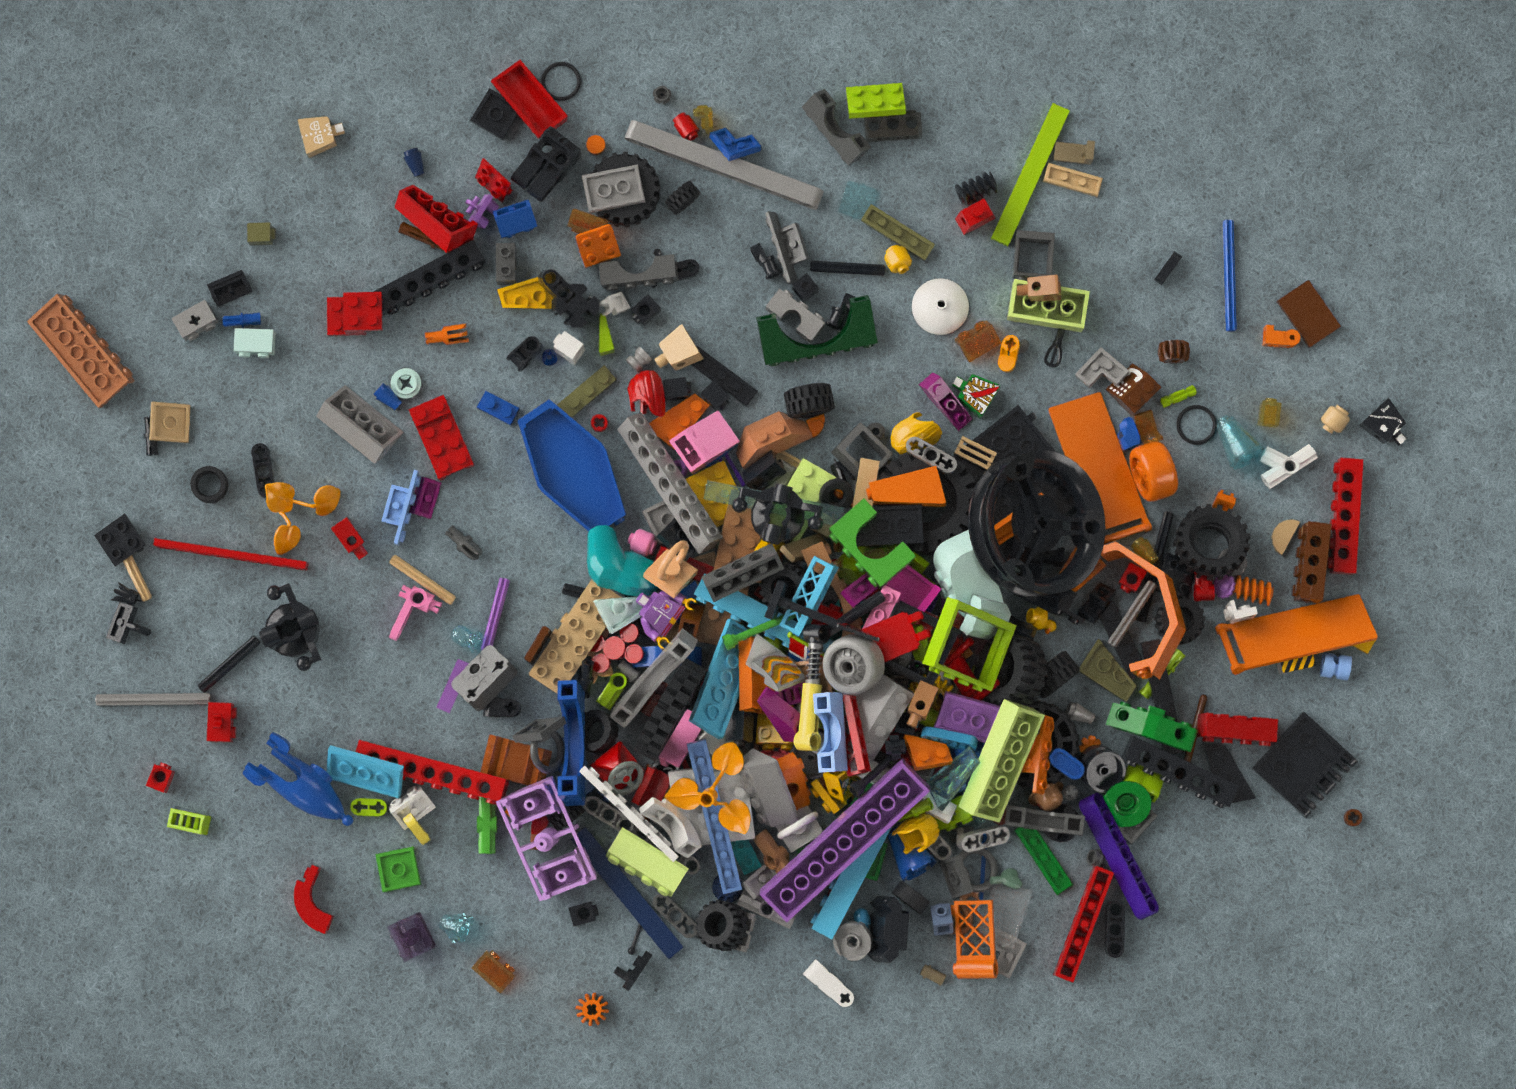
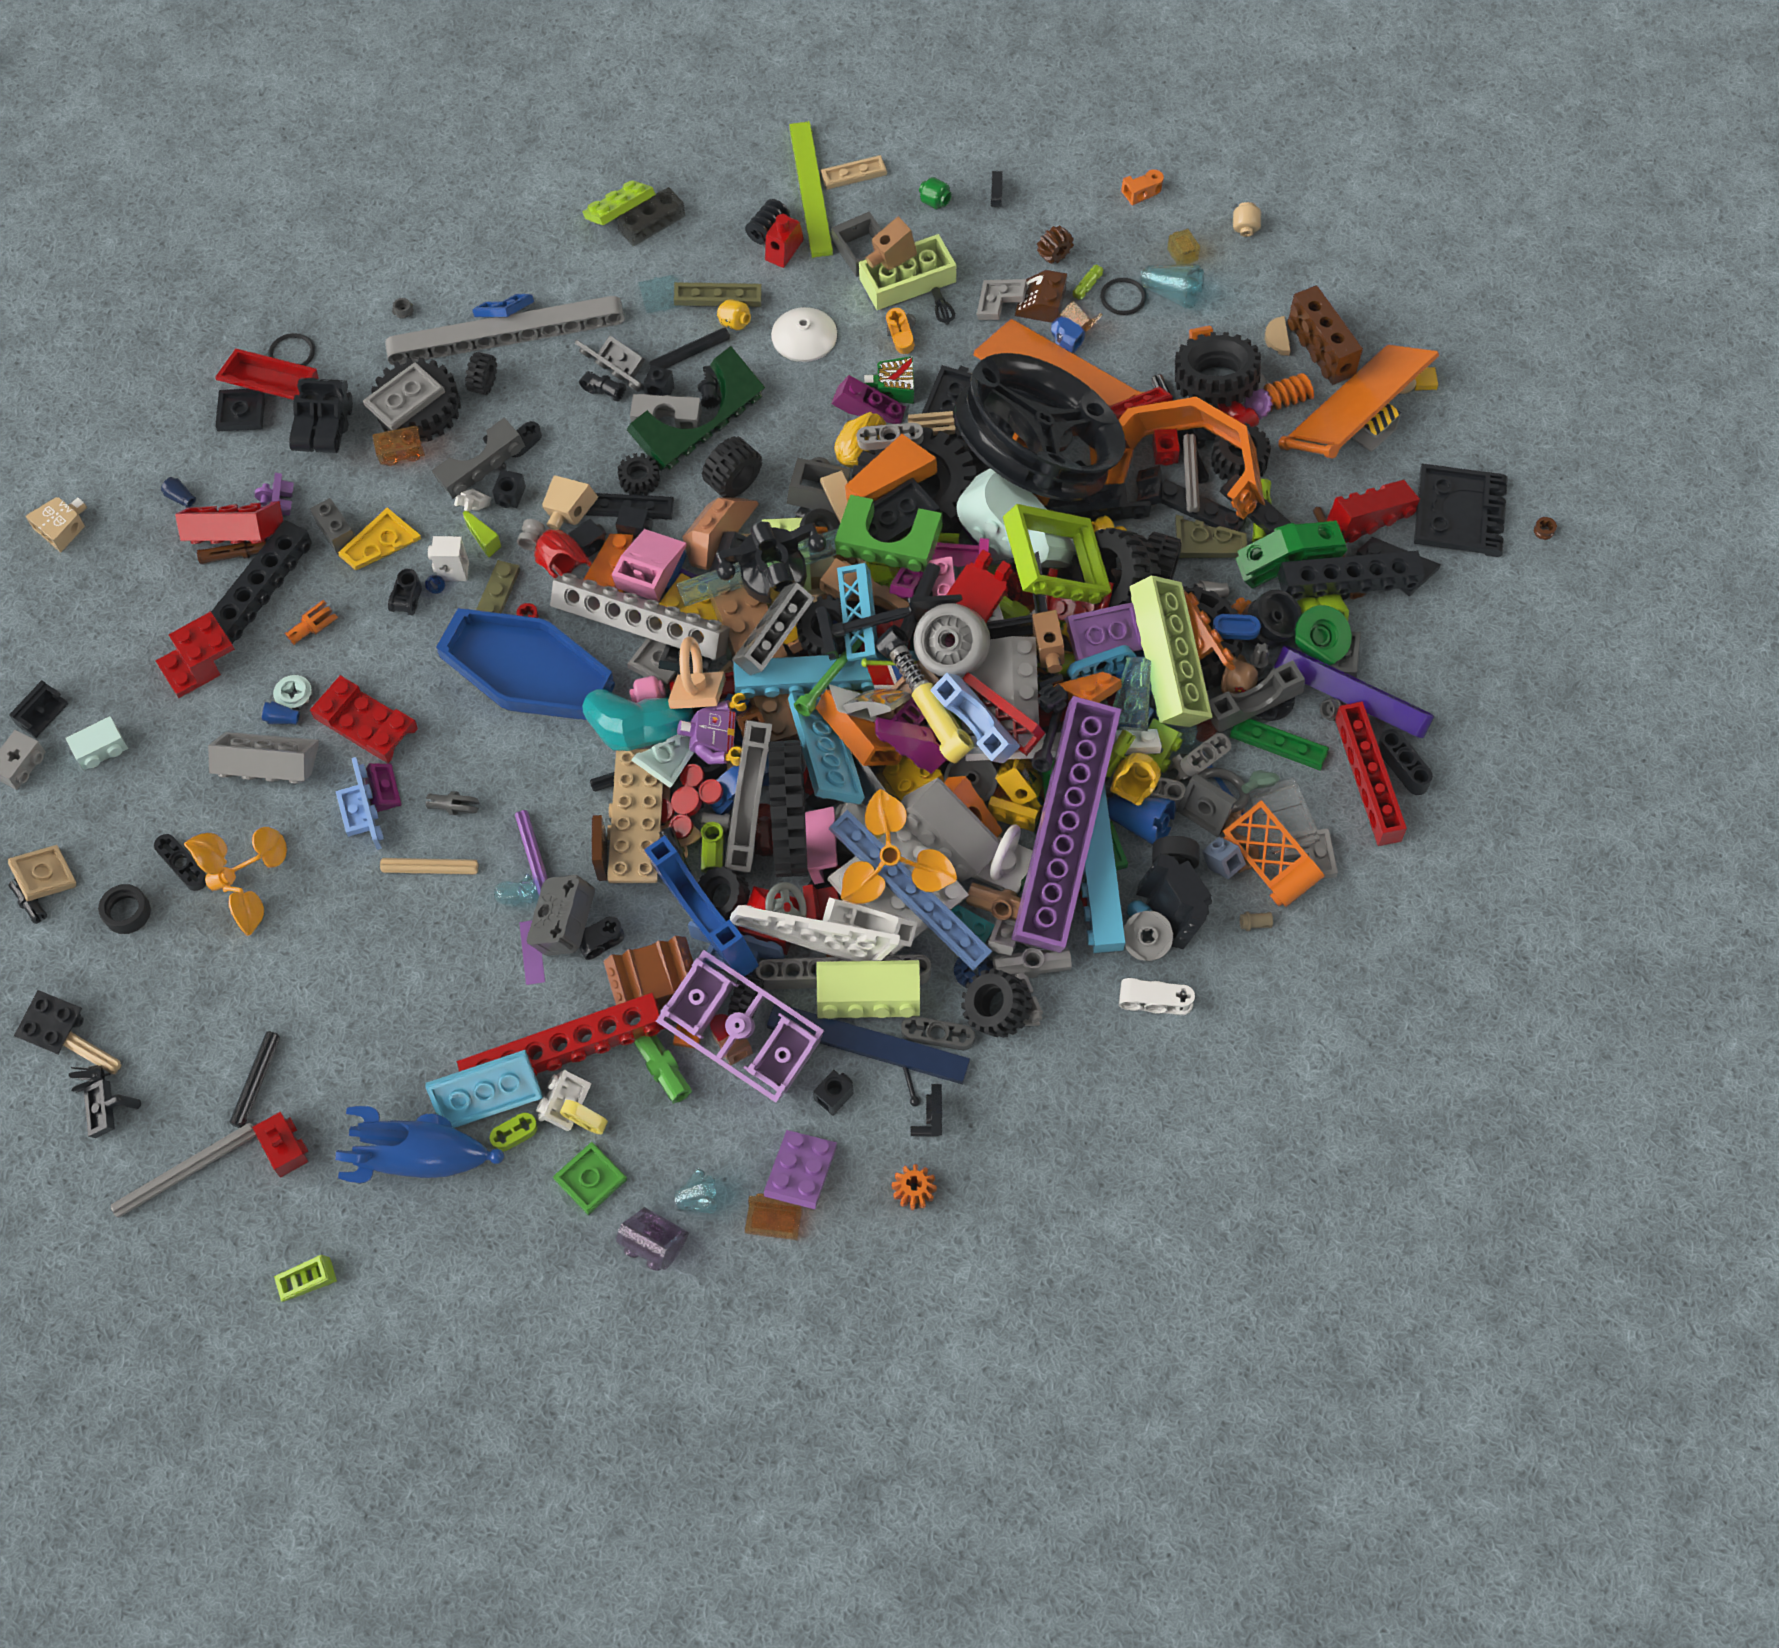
camera: 30 degrees left, 20 degrees down
(154, 783) = (246, 1258): red brick -> none
(231, 554) = (189, 963): red tile -> none
(243, 319) = (58, 738): blue axle -> none
(260, 233) = (45, 641): olive brick -> none
(301, 641) = (319, 1011): black piece -> none
(305, 905) = (516, 1288): red arch -> none
(346, 529) = (317, 865): red torso -> none
(427, 604) = (431, 895): bright pink piece -> none
(493, 181) = (272, 457): red hinge -> none
(498, 408) = (409, 660): blue plate -> none
(515, 219) = (317, 482): blue brick -> none
(529, 952) = (800, 1169): none -> medium lavender plate
(538, 732) = (660, 922): dark grey tile -> none
(571, 302) = (416, 510): black connector -> none
(595, 145) = (362, 383): orange tile -> none
(597, 245) = (419, 452): orange bracket -> none
(686, 126) = (443, 317): red brick -> none
(707, 121) = (458, 299): clear yellow bracket -> none
(741, 345) = (636, 464): none -> black tyre
(816, 424) = (754, 492): orange tile -> none
(821, 111) = (570, 236): dark grey arch -> none
(978, 340) = (863, 338): clear orange bracket -> none
(1074, 152) = (841, 149): dark tan bracket -> none
(1118, 243) = (935, 193): none -> green head
(1133, 534) = (1149, 397): none -> red tile
(1153, 471) = (1115, 340): orange wheel -> none
(1229, 275) = (1058, 167): blue axle -> none
(1241, 614) = (1291, 413): white bracket -> none
(1277, 463) = (1231, 280): white piece -> none
(1308, 313) = (1146, 154): reddish brown tile -> none
(1335, 666) = (1418, 410): light blue wheel -> none
(1354, 468) = (1310, 270): red brick -> none
(1385, 423) = (1294, 198): black torso -> none

